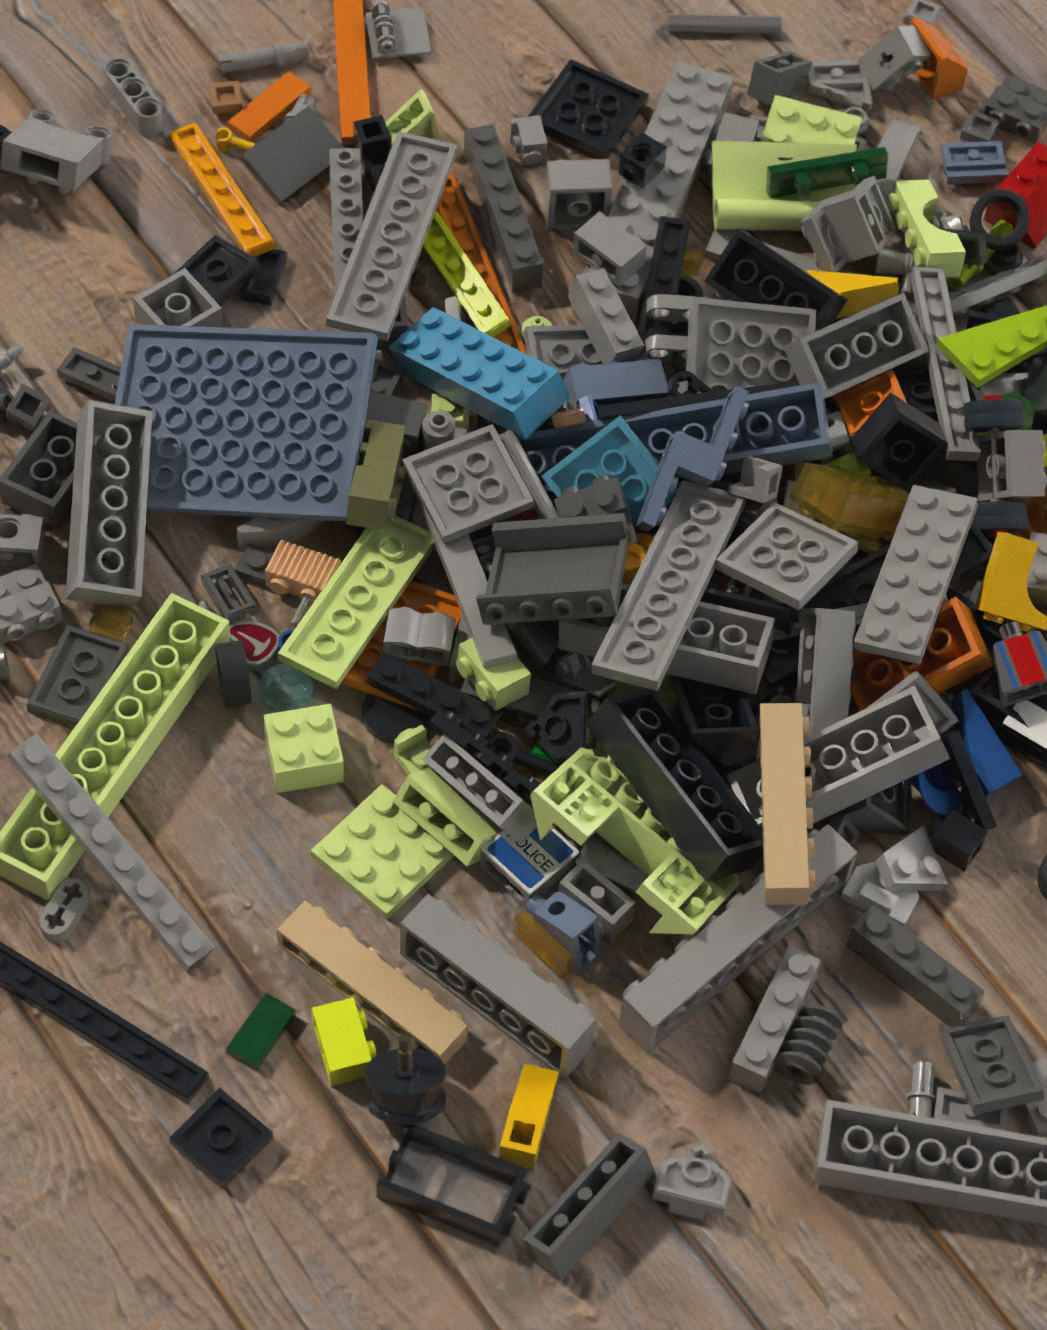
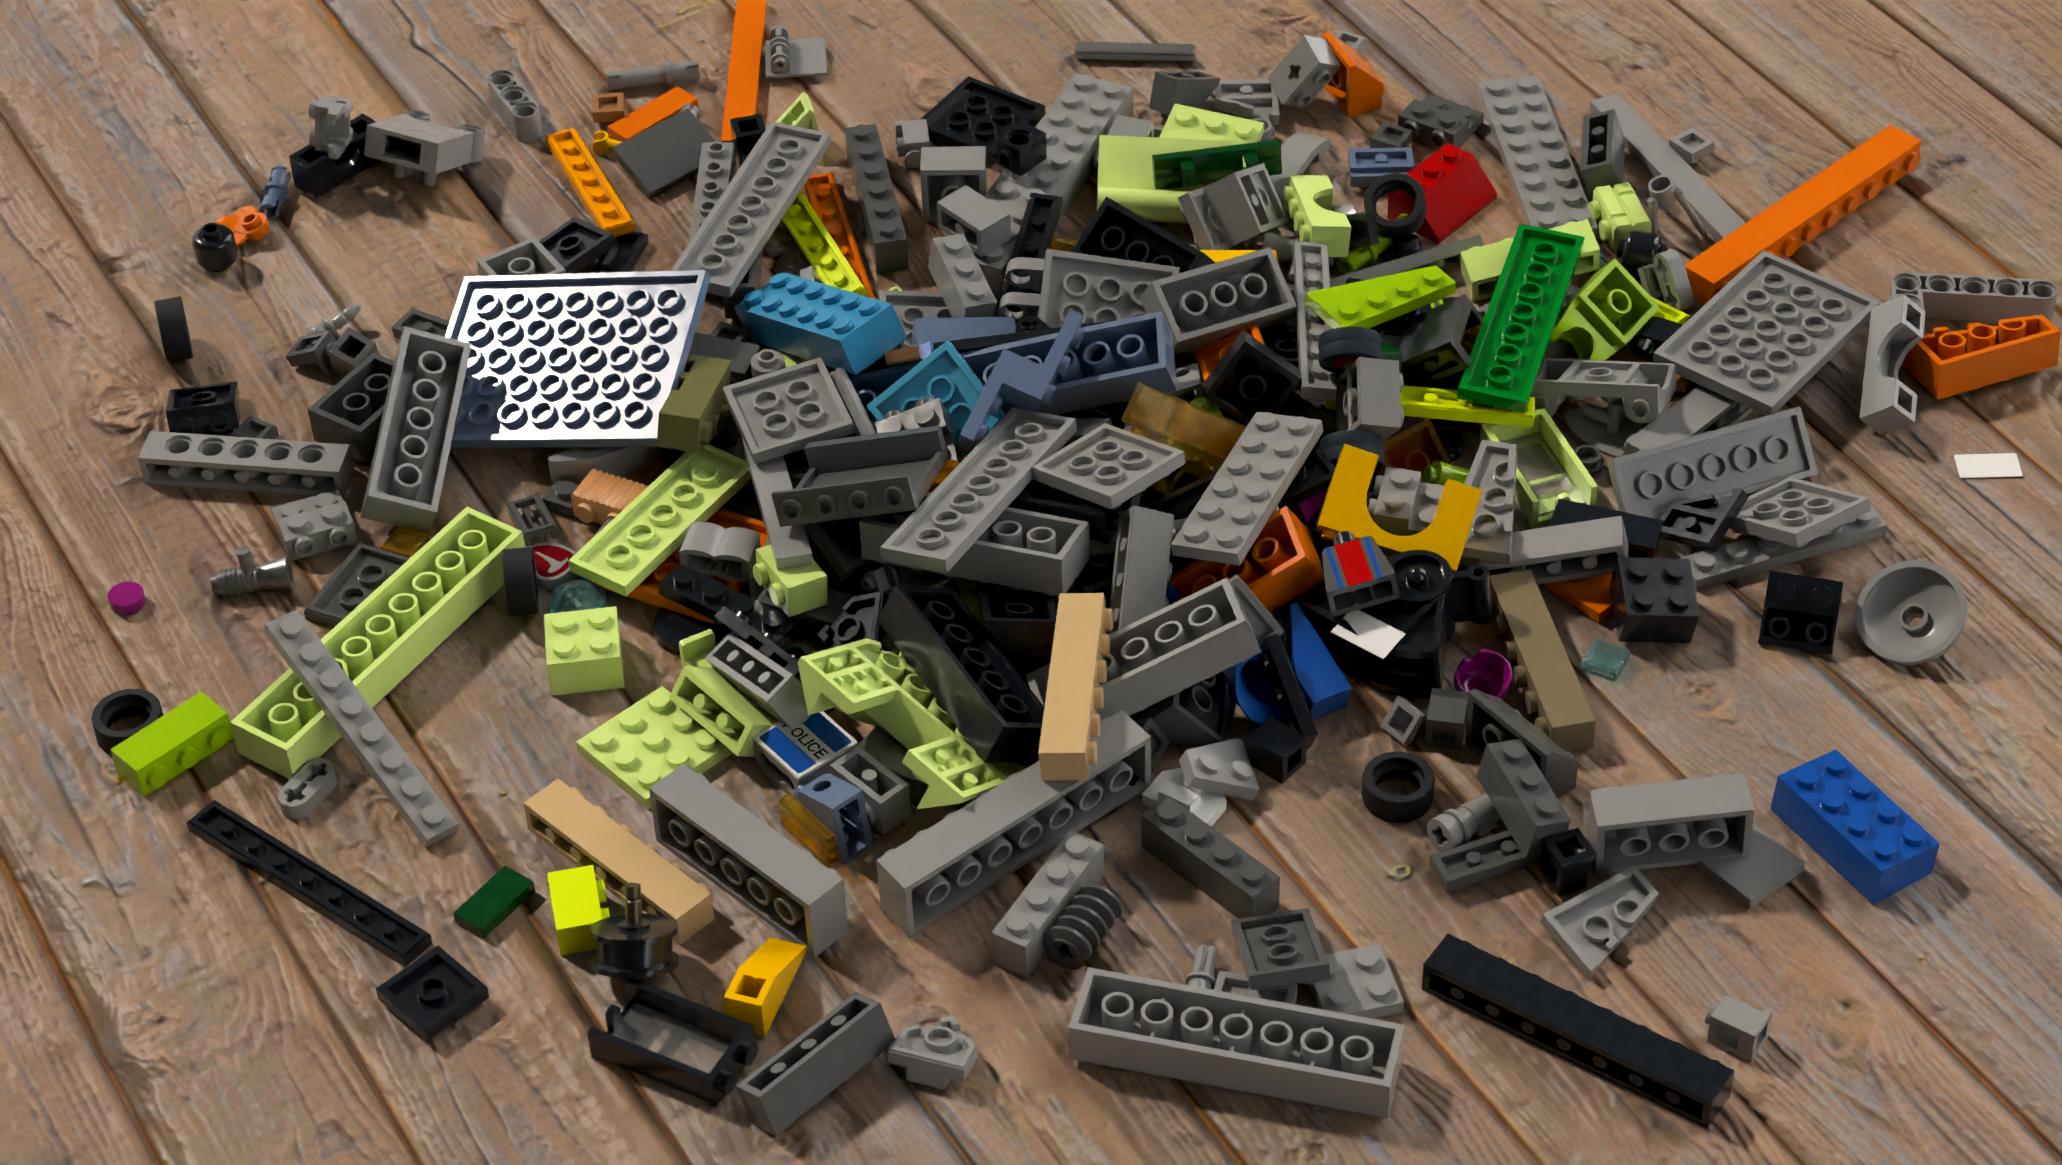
camera: 10 degrees right, 15 degrees down
(758, 480) = (1092, 403): light grey panel -> none

